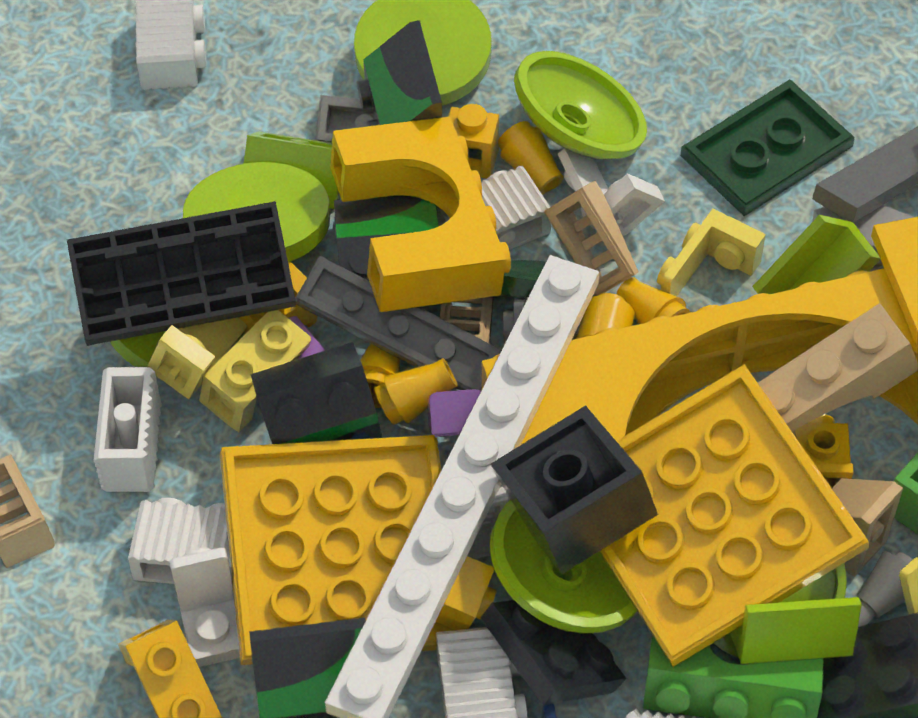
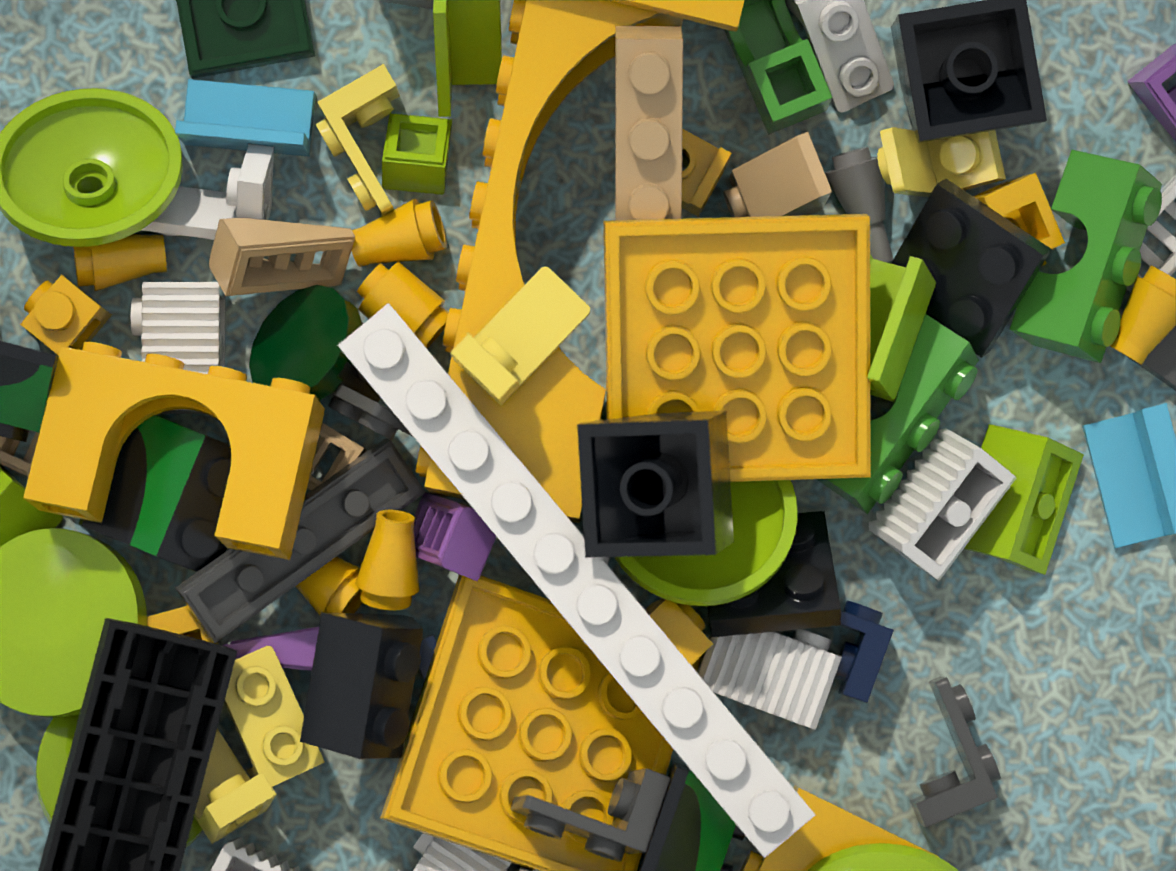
camera: 65 degrees left, 30 degrees up
(281, 603) = (632, 804): none -> dark grey bracket
(621, 361) = (521, 335): none -> light yellow bracket
(679, 186) = (245, 114): none -> medium azure panel
(713, 289) = (416, 154): none -> lime slope

